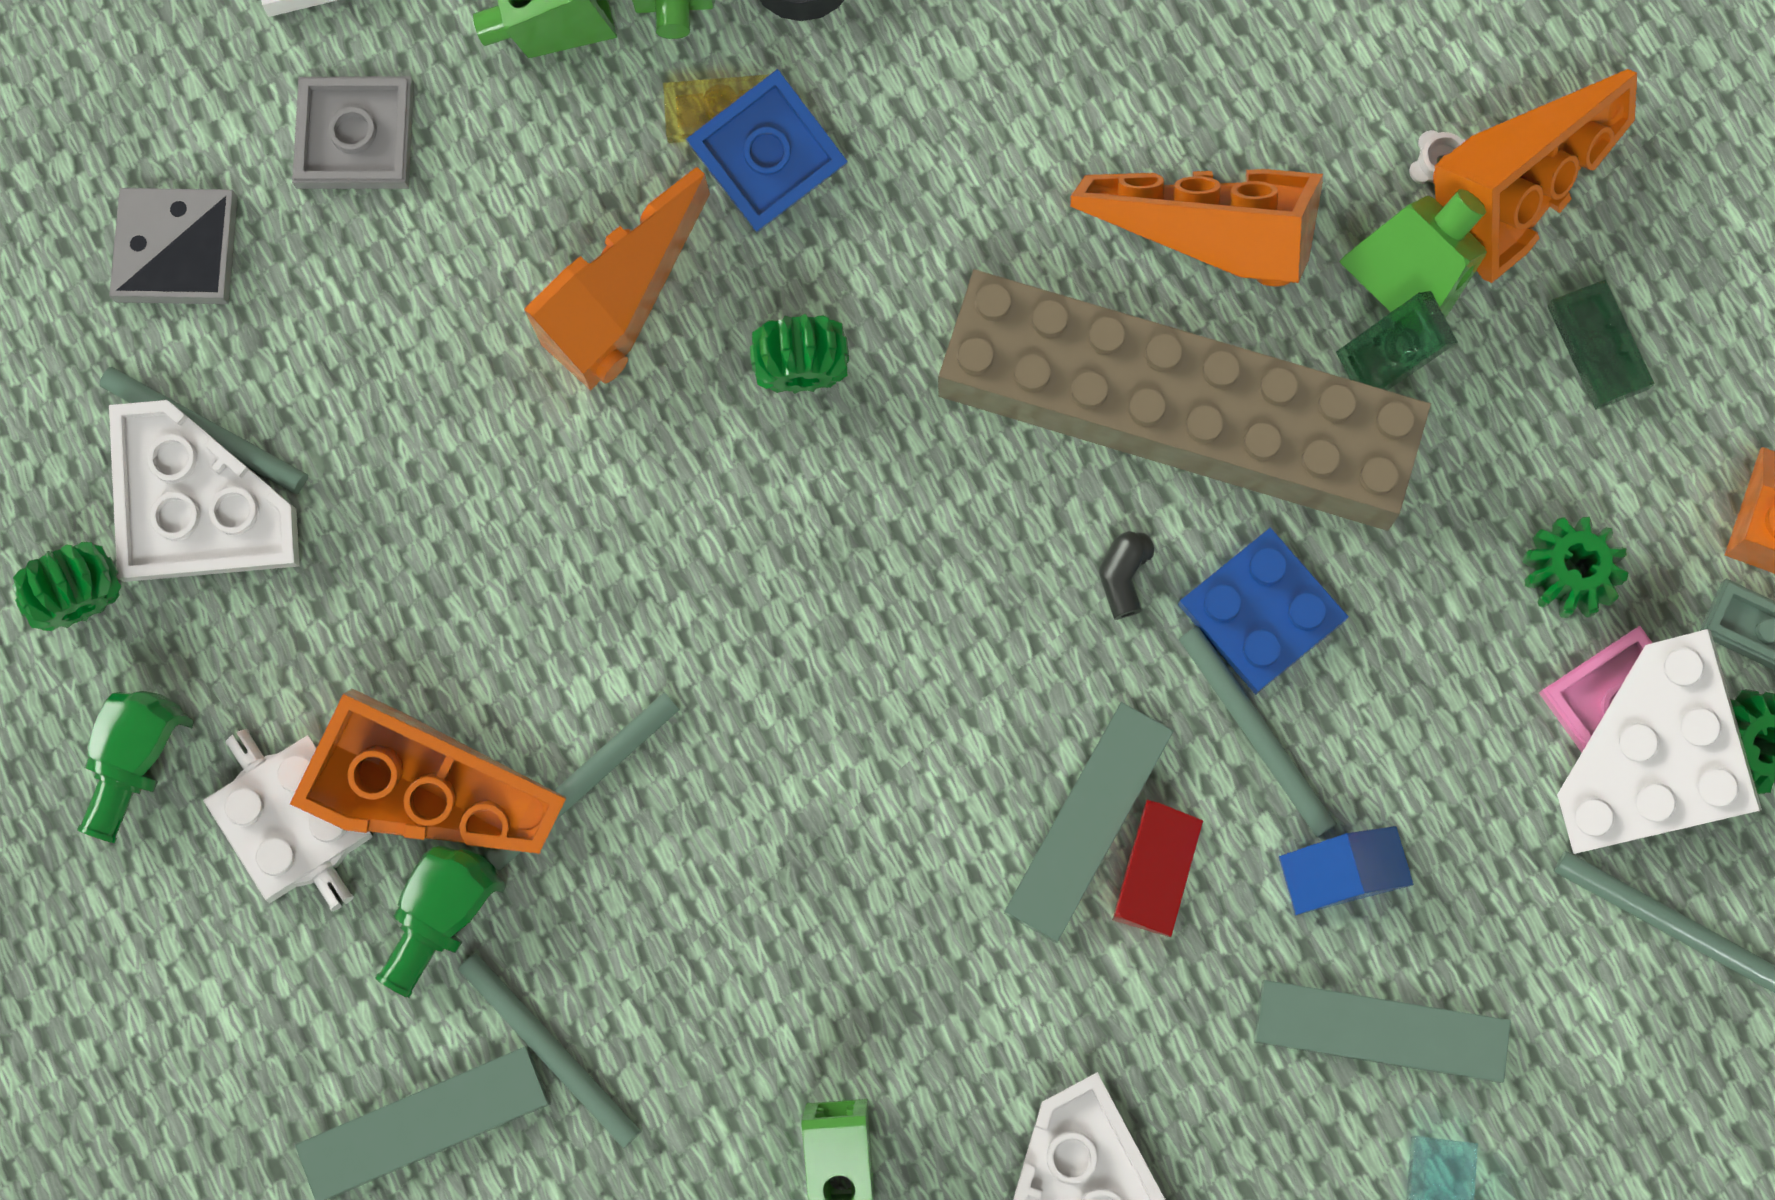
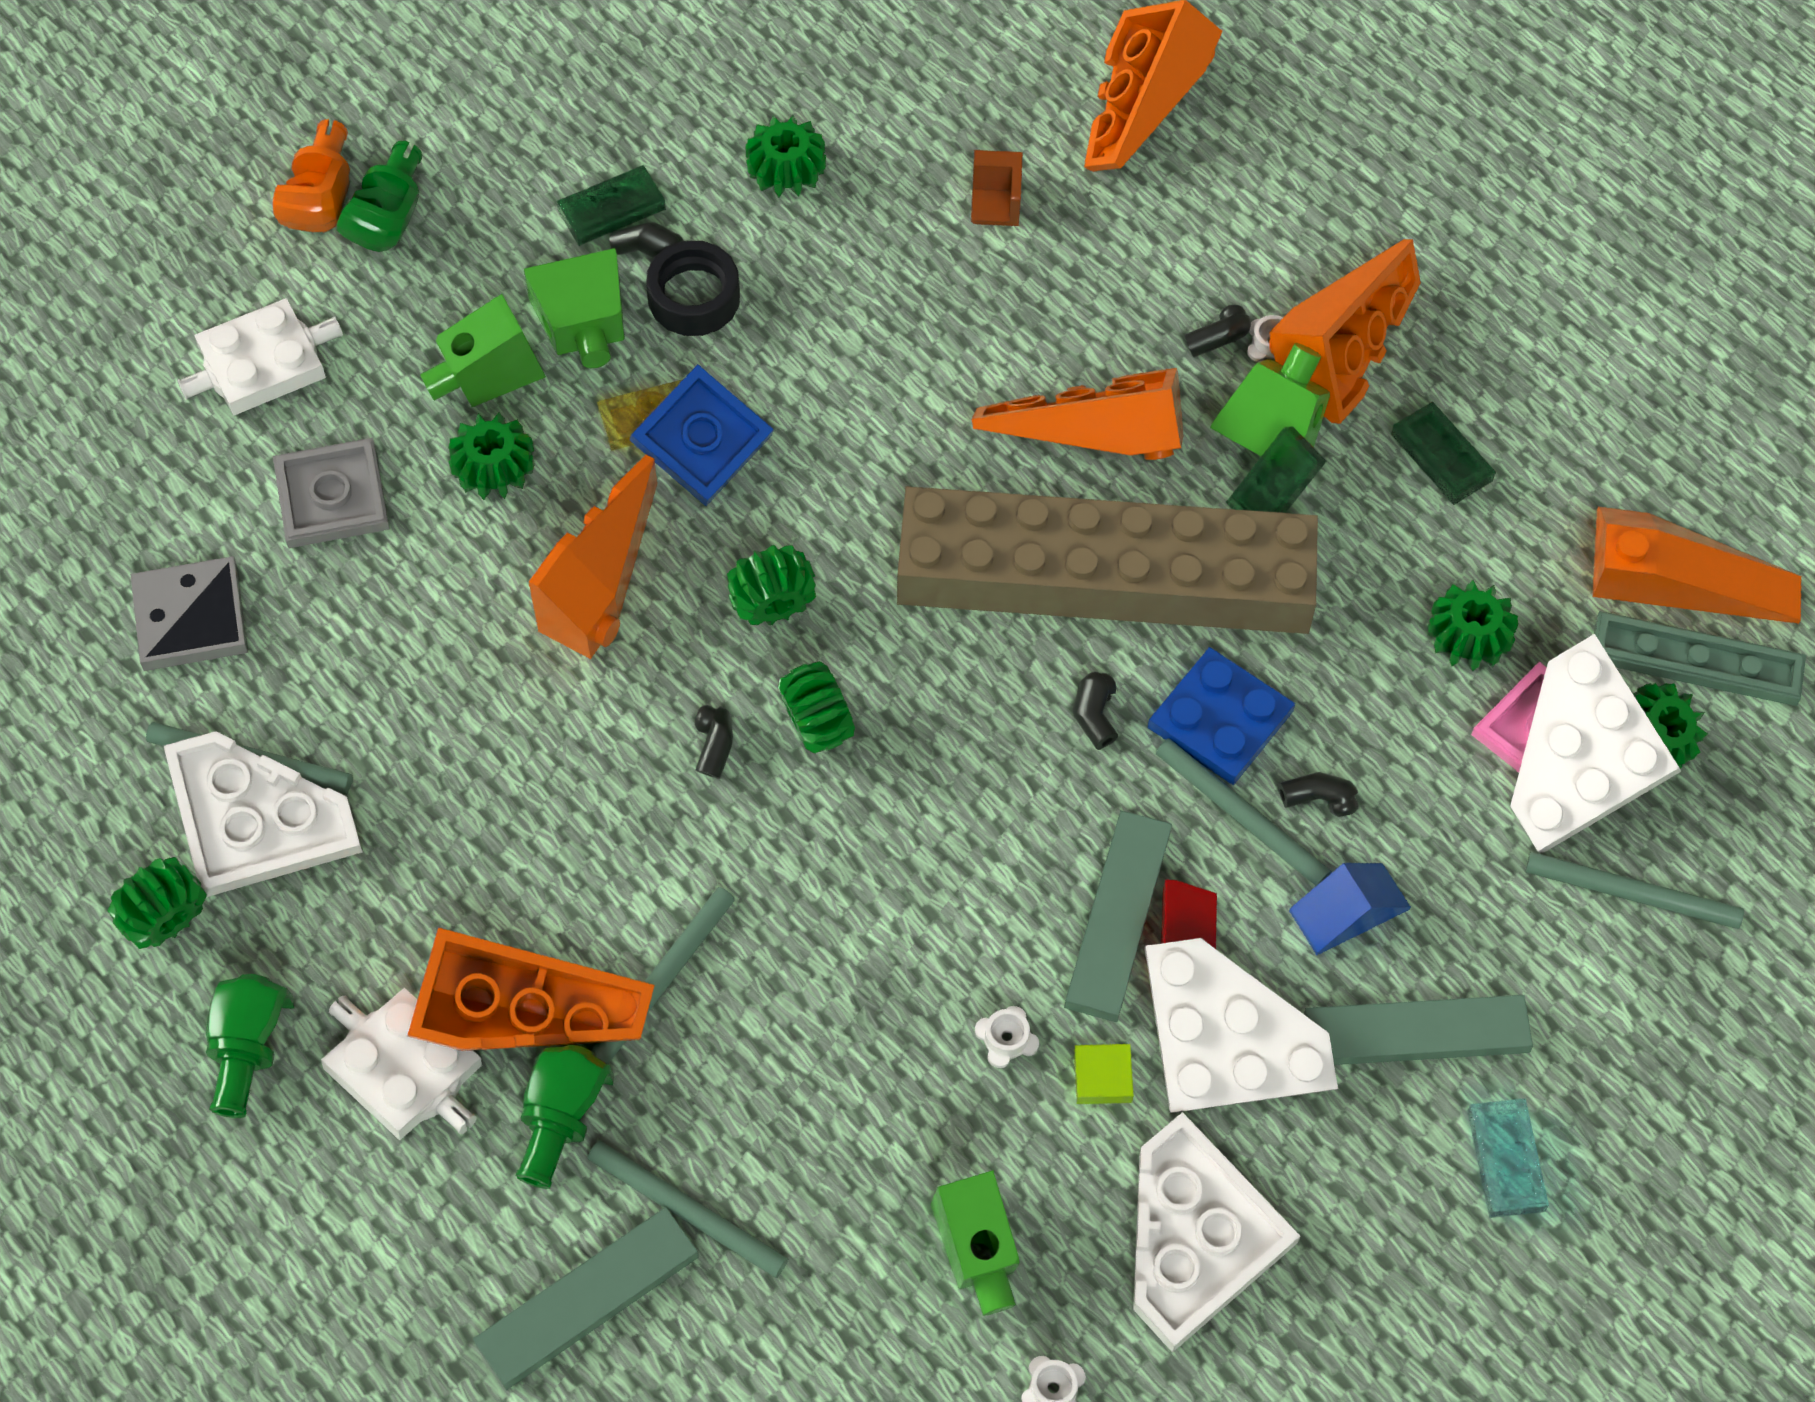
camera: 20 degrees left, 15 degrees down
(538, 143) = (491, 455): none -> green gear
(703, 522) = (718, 726): none -> pearl dark grey arm
(814, 511) = (816, 707): none -> green gear
(942, 920) = (1011, 1021): none -> white plate
(1026, 1001) = (1103, 1074): none -> lime tile
(1171, 996) = (1228, 1033): none -> white plate
(1354, 723) = (1320, 786): none -> pearl dark grey arm
(1383, 141) = (1231, 327): none -> pearl dark grey arm

